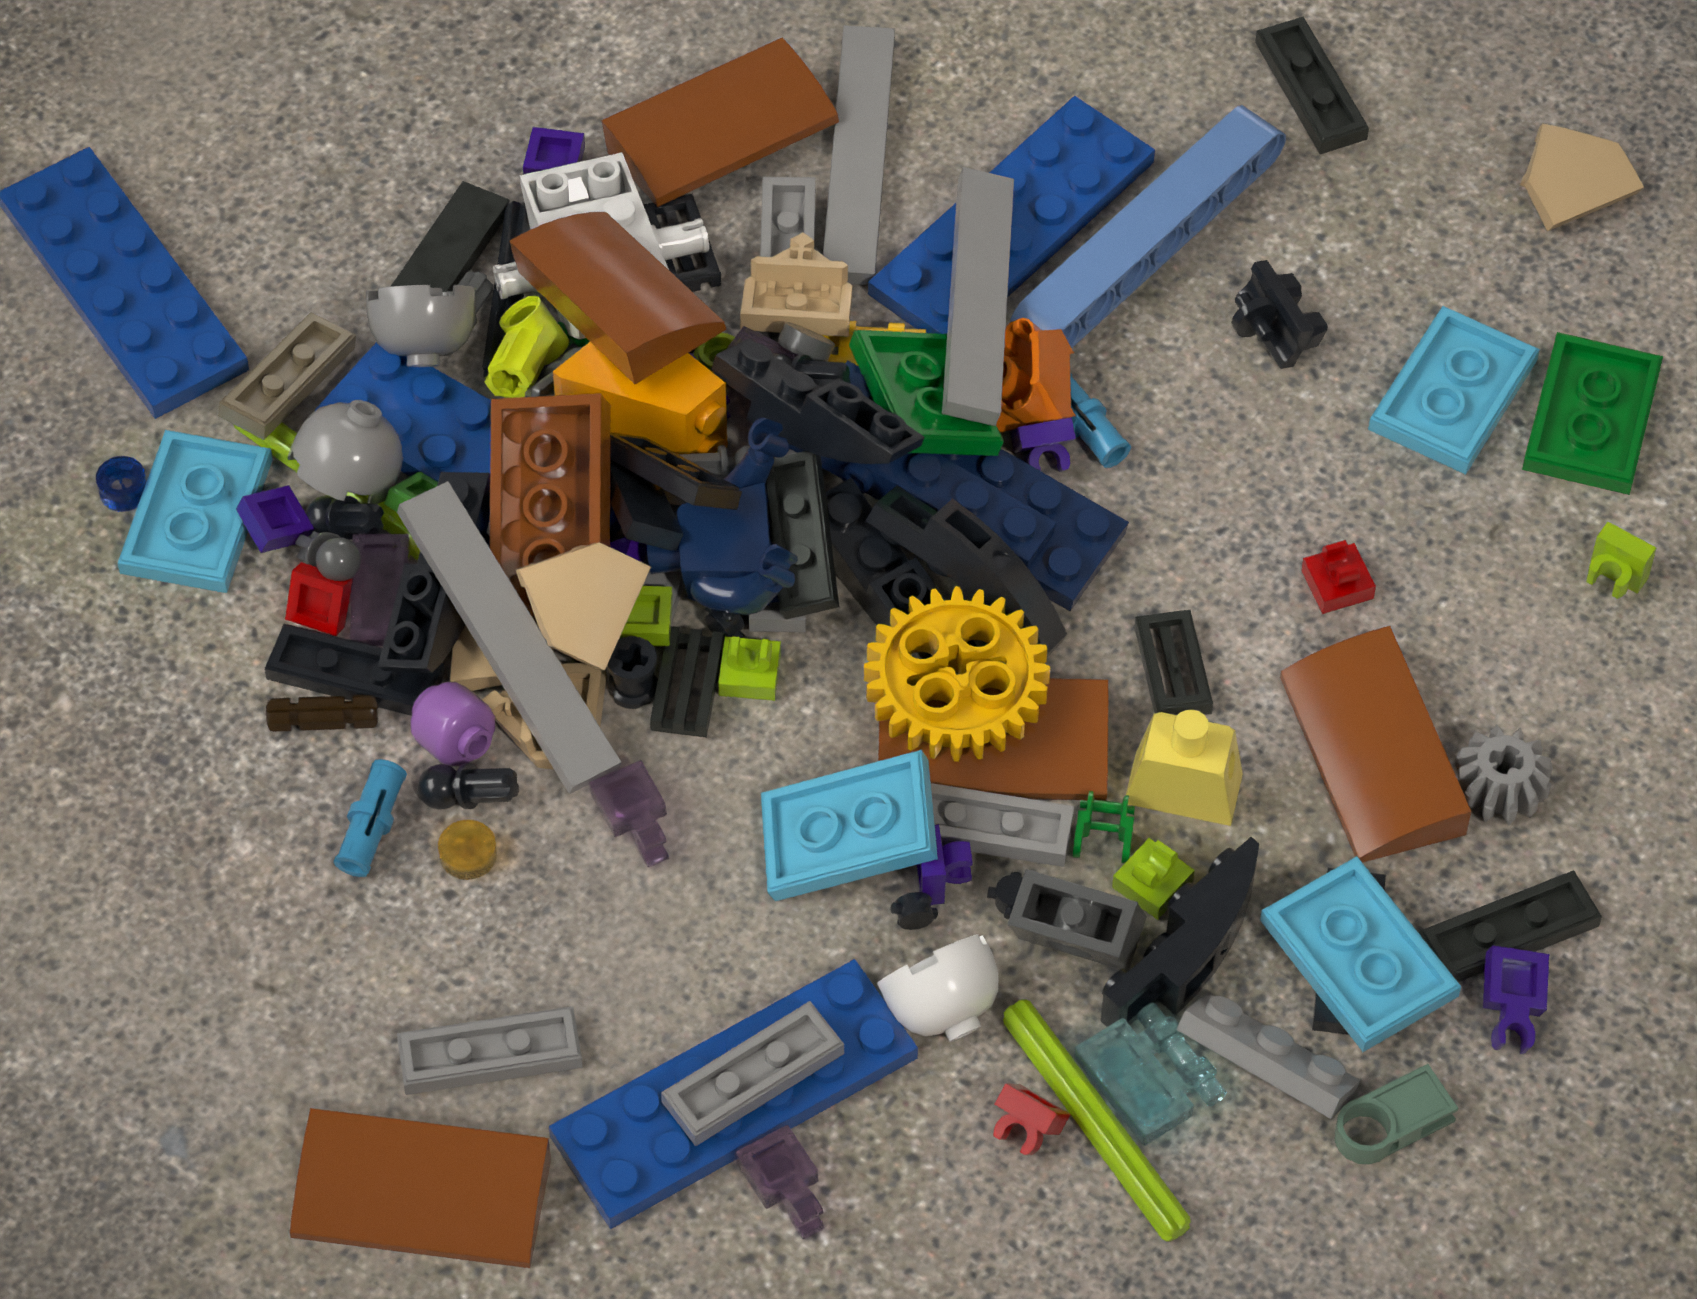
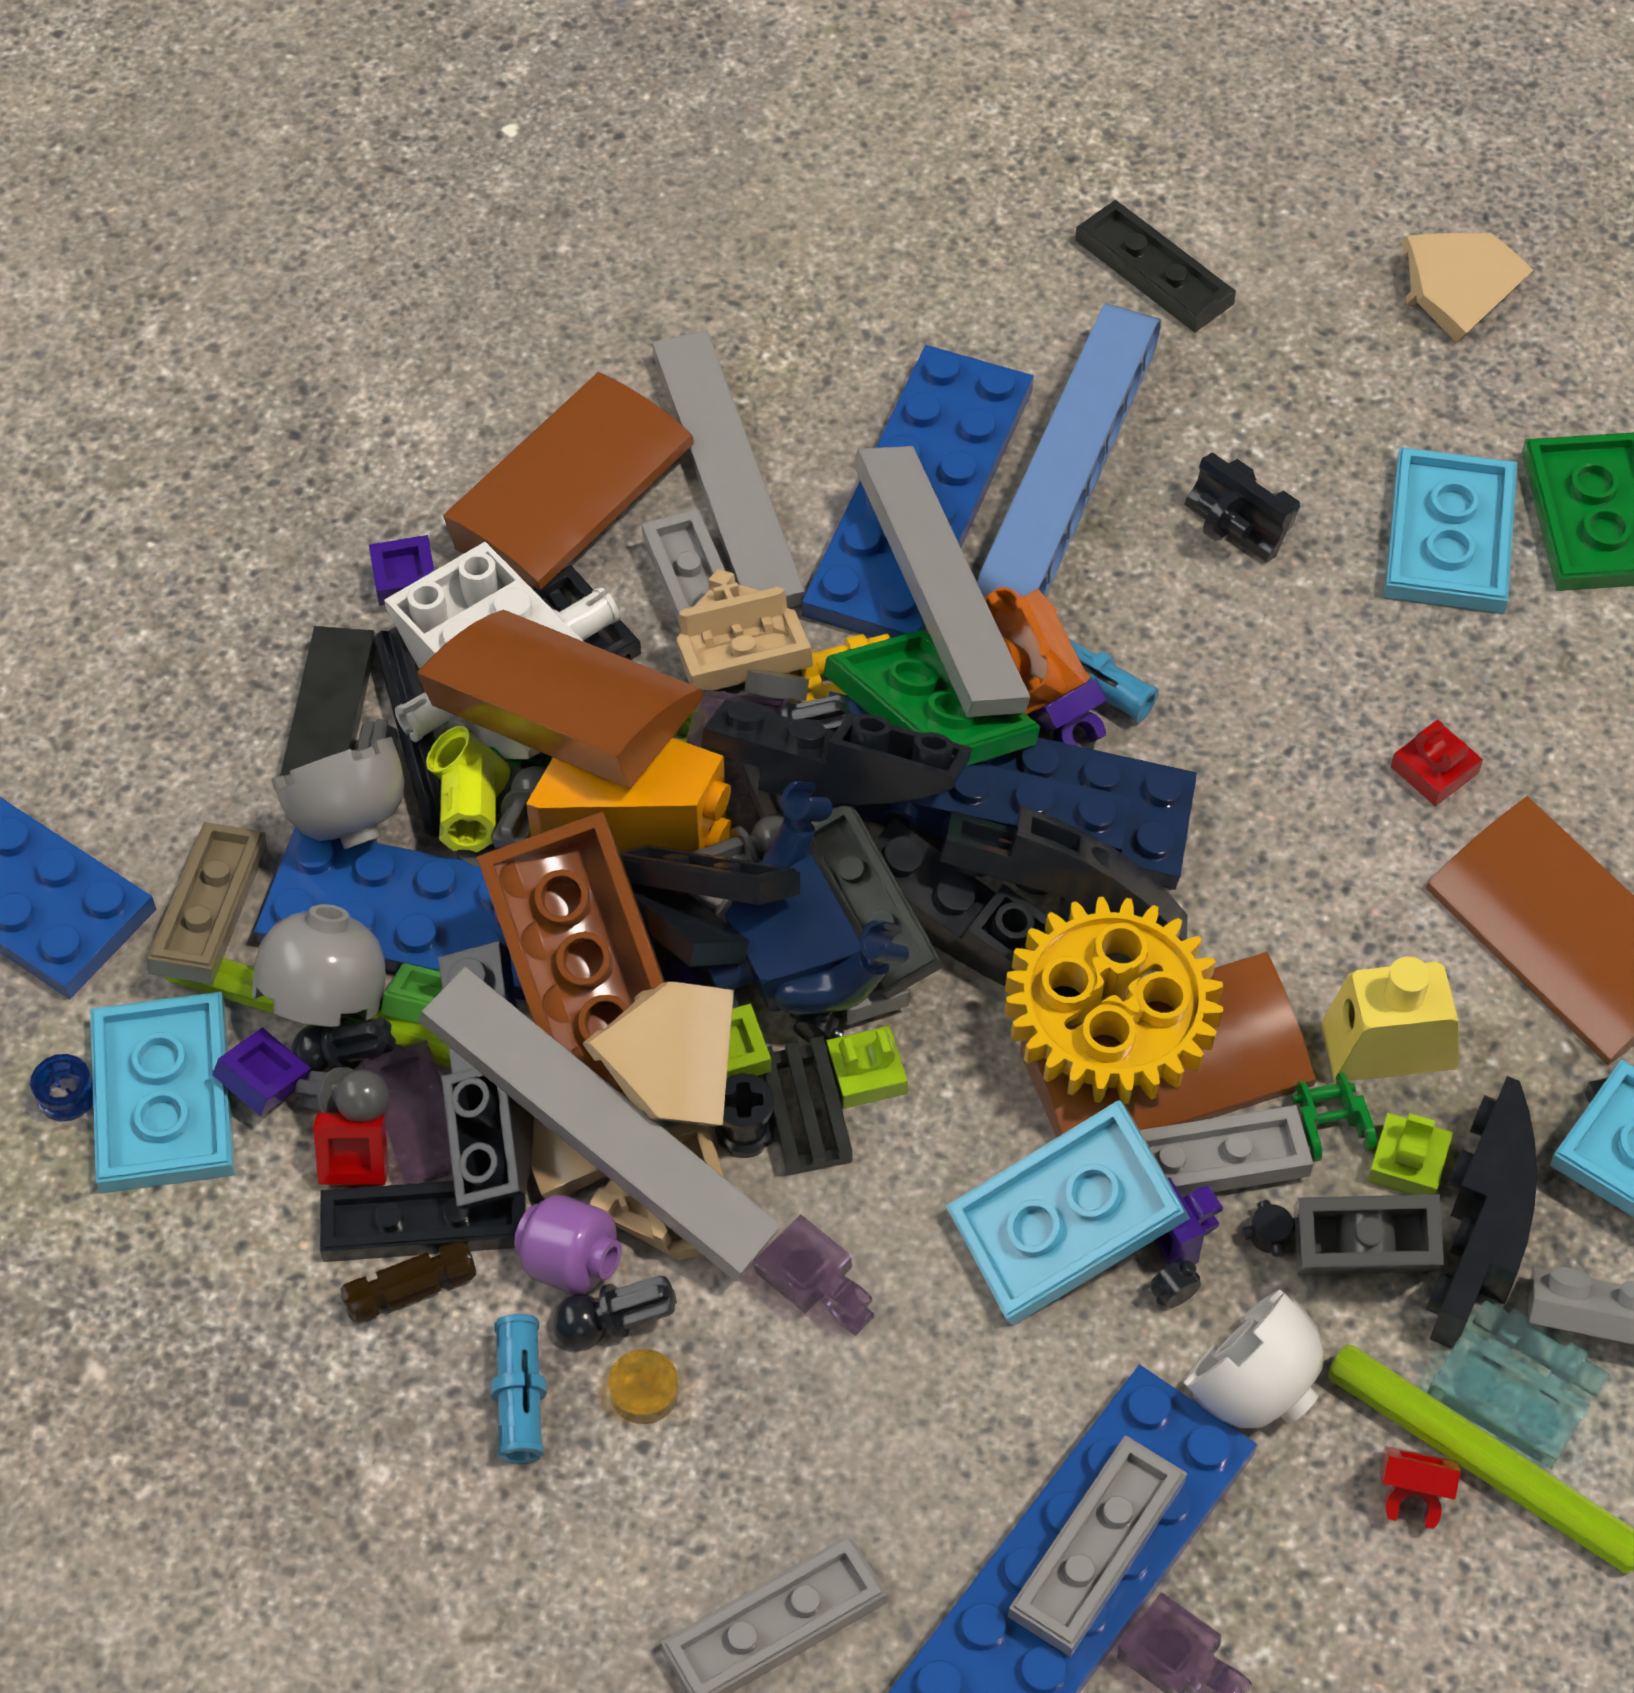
camera: 20 degrees left, 0 degrees up
(1180, 701) = (1305, 938): pearl dark grey tile -> none

